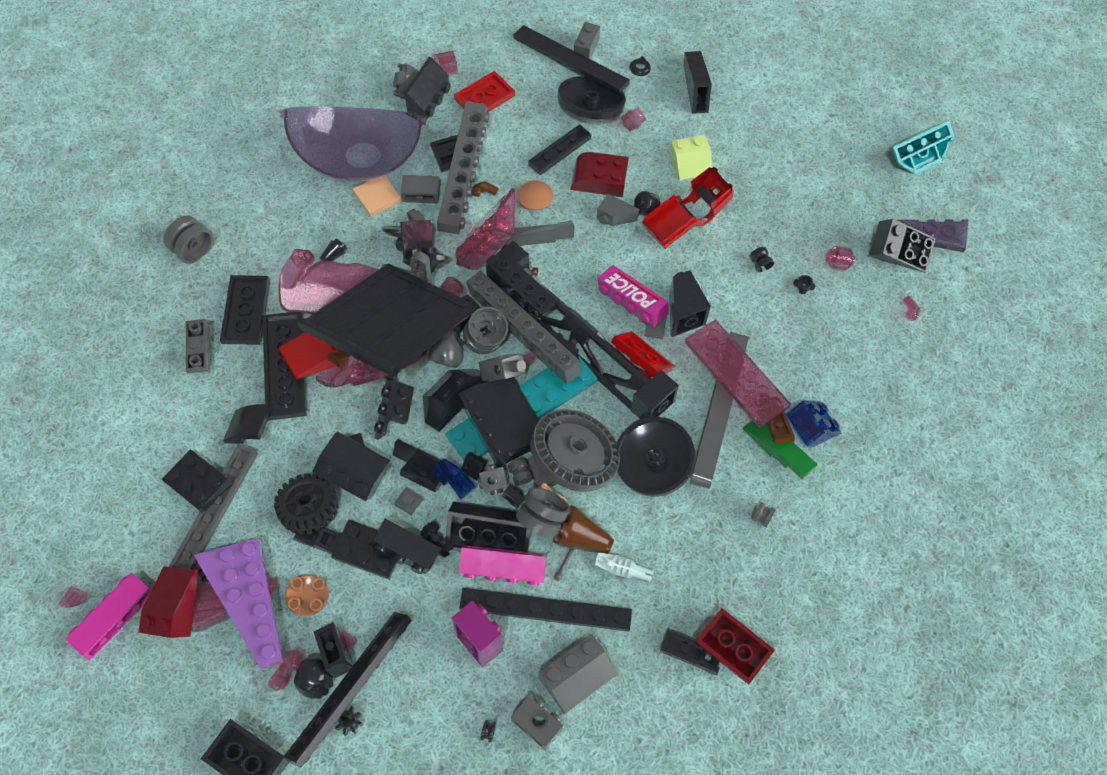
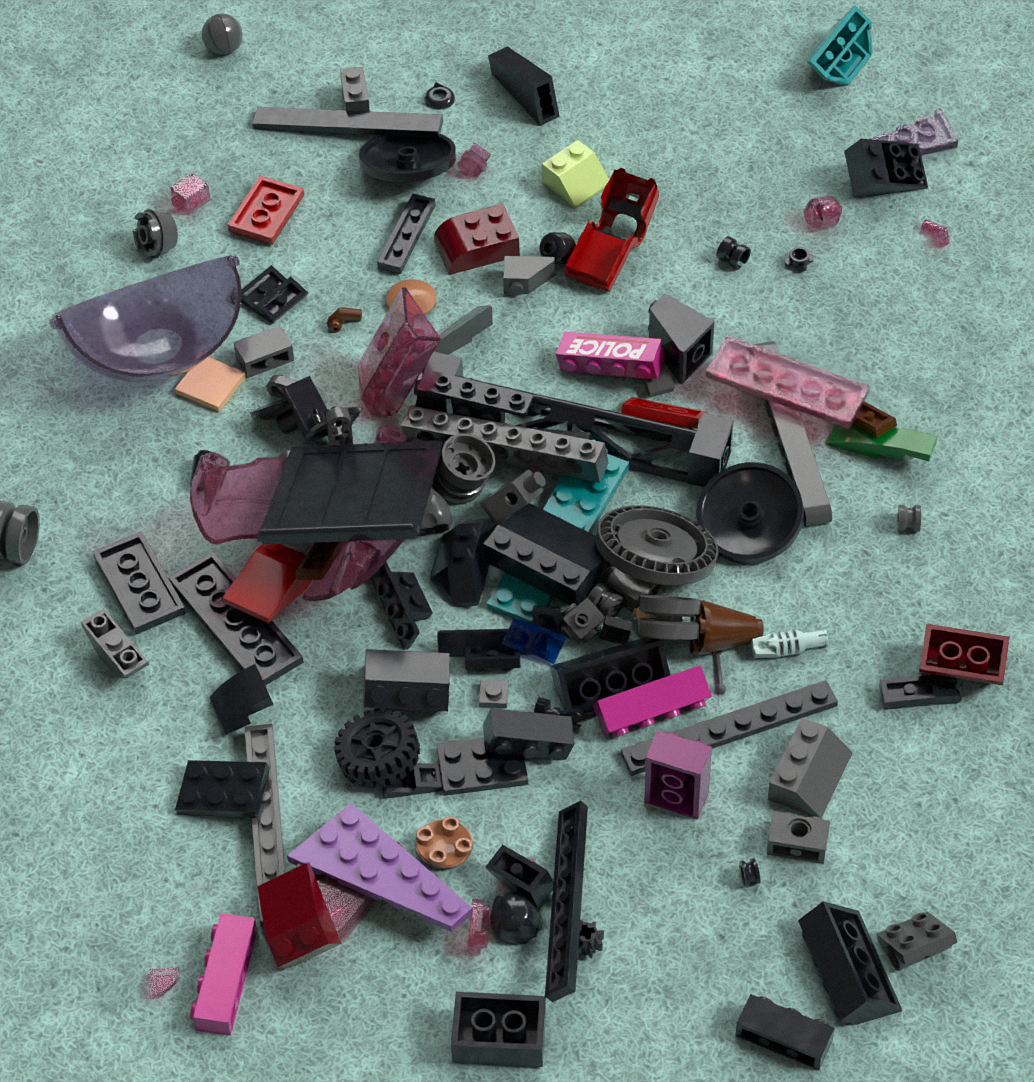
camera: 25 degrees left, 10 degrees down
(427, 89) = (192, 229): black slope -> none
(472, 113) = (303, 302): dark grey brick -> none
(813, 422) = (903, 400): clear blue slope -> none

